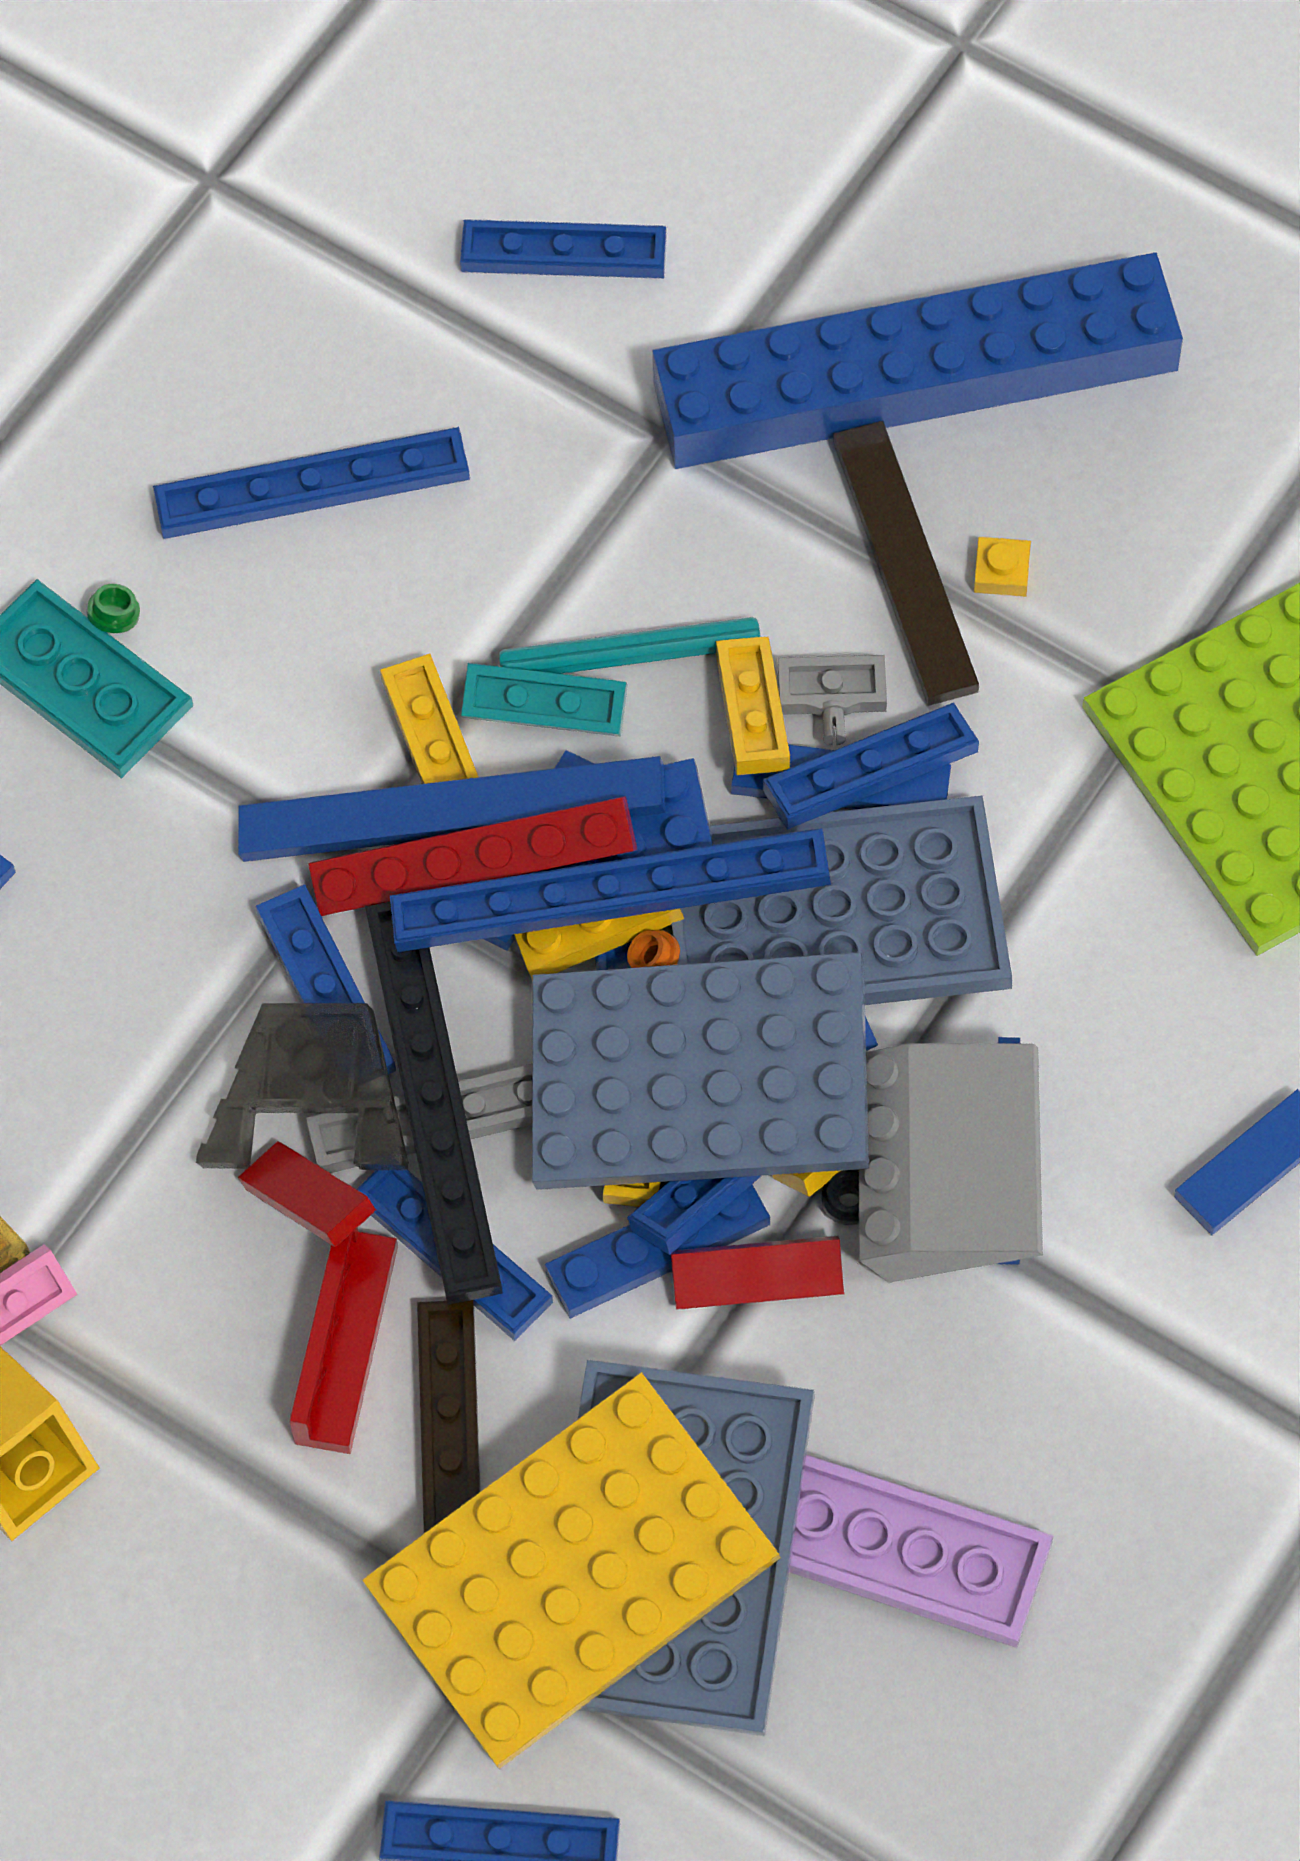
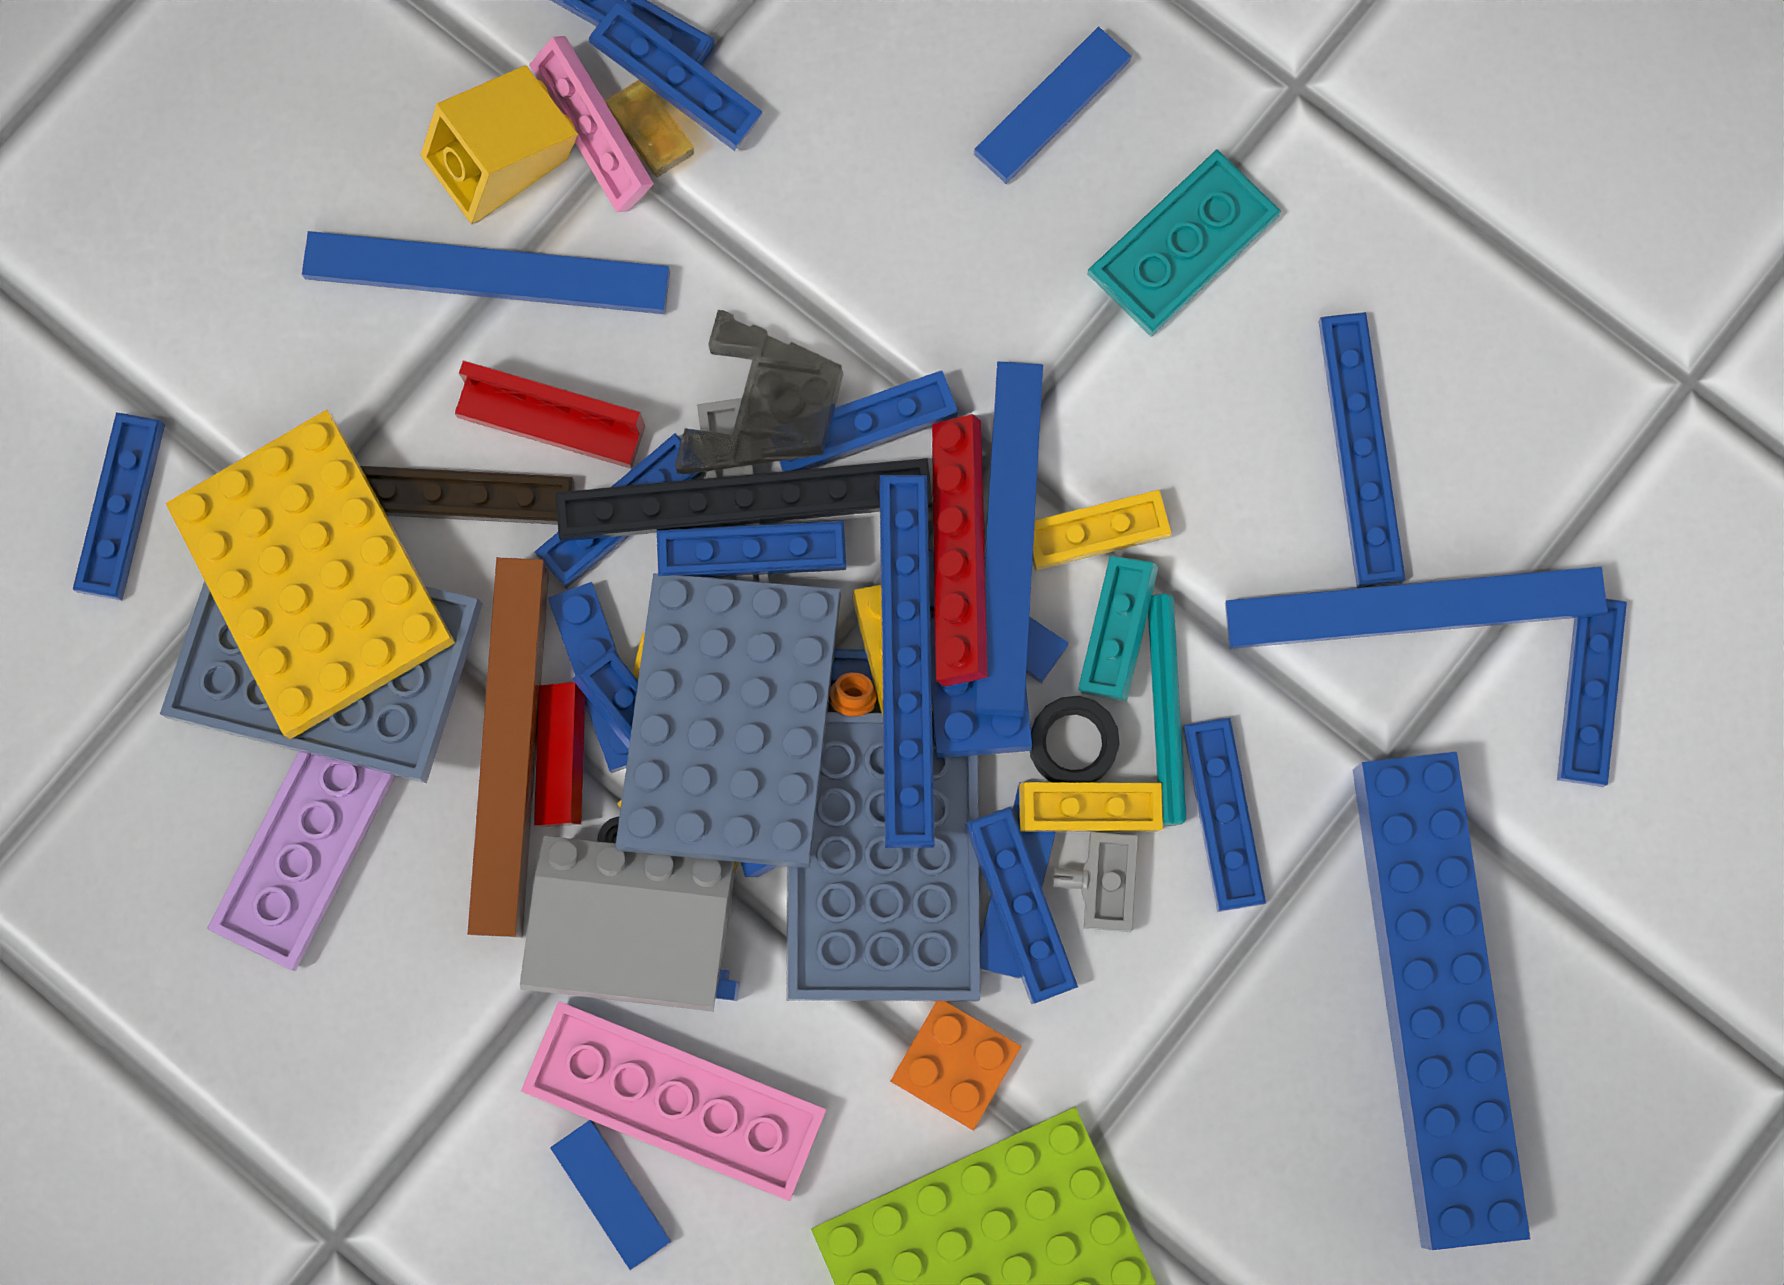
camera: 95 degrees right, 15 degrees up
(113, 609) = (1243, 272): green plate -> none
(163, 1442) = (486, 272): none -> blue tile
(307, 1193) = (664, 389): red tile -> none
(491, 417) = (1416, 607): none -> blue tile
(493, 1083) = (752, 550): none -> blue tile
(685, 698) = (1074, 706): none -> black tyre
(742, 584) = (1224, 814): none -> blue tile
(759, 1327) = (508, 748): none -> dark orange tile
(905, 563) = (1234, 964): dark brown tile -> none
(1002, 566) = (1221, 1052): yellow plate -> none
(1054, 824) = (955, 1064): none -> orange plate
(1139, 1105) = (674, 1100): none -> bright pink plate

